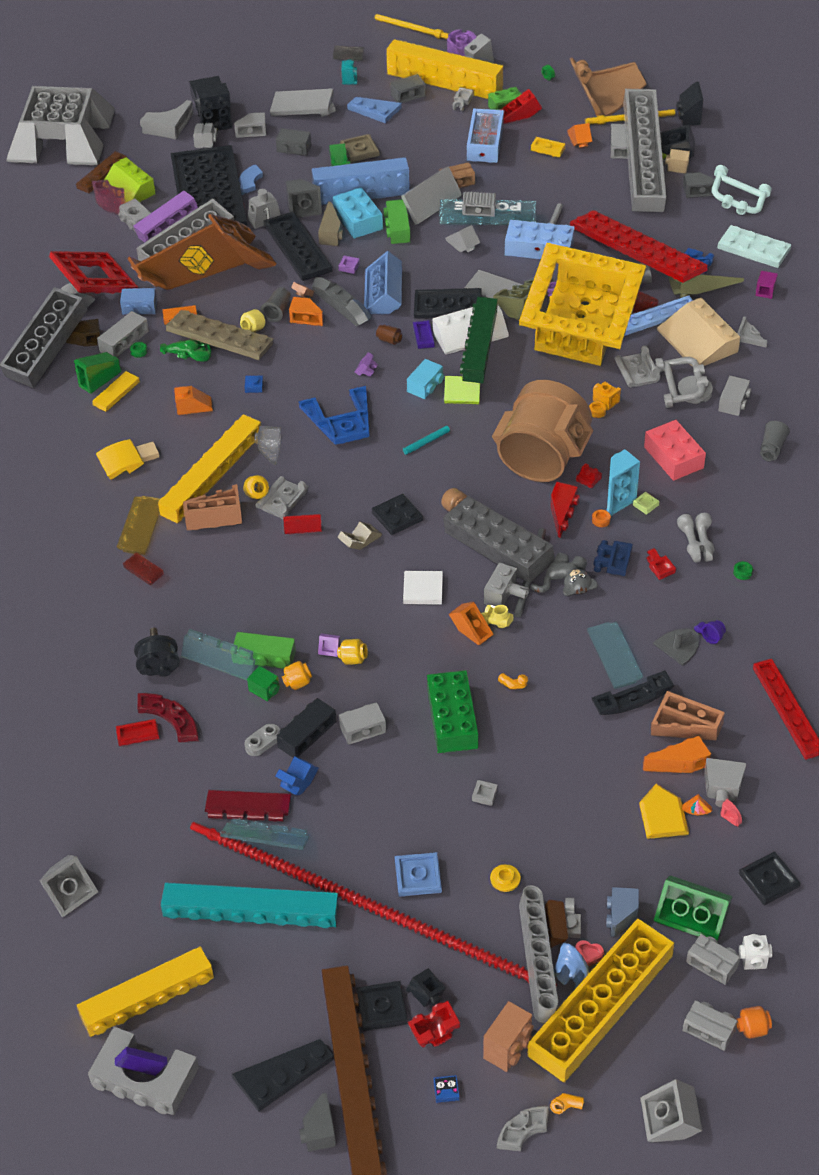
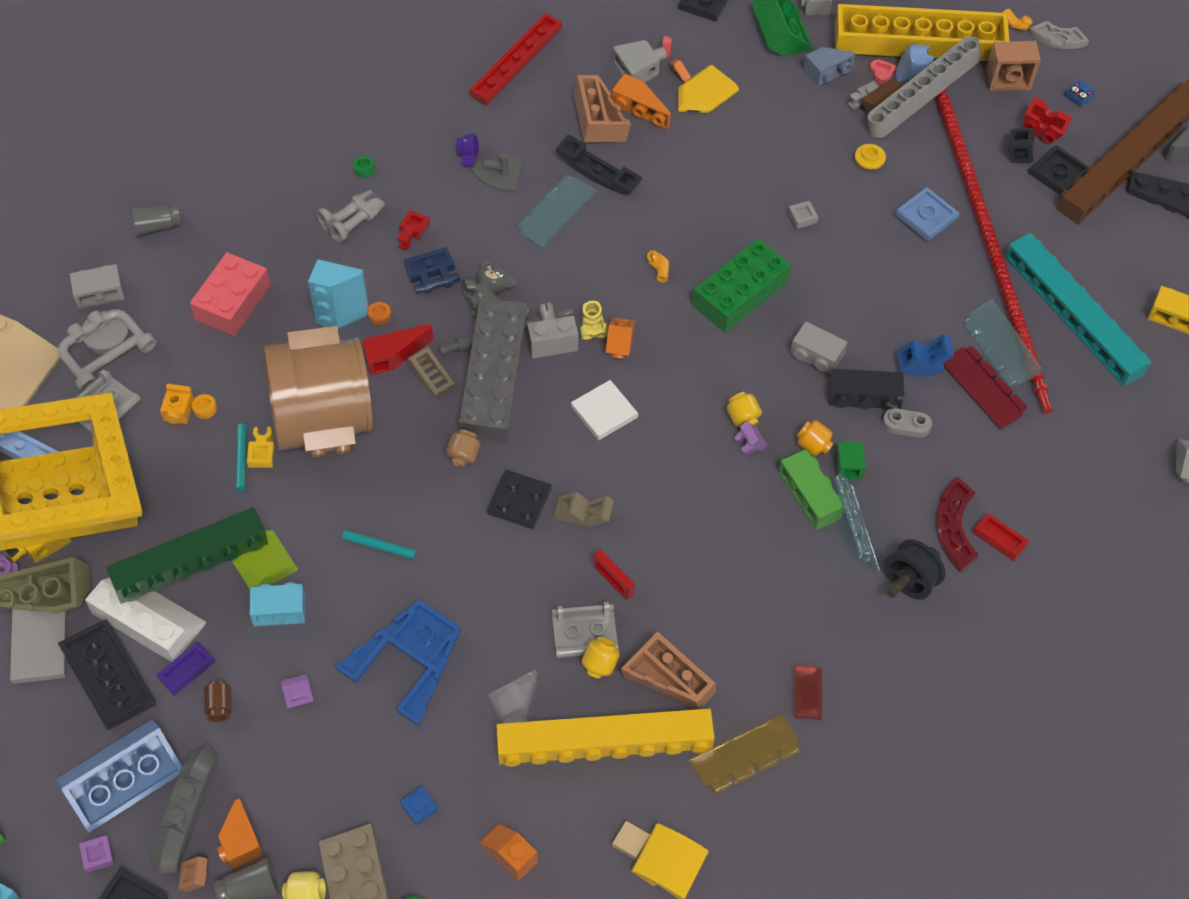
camera: 130 degrees left, 10 degrees up
(540, 516) = (427, 355): none -> dark tan slope

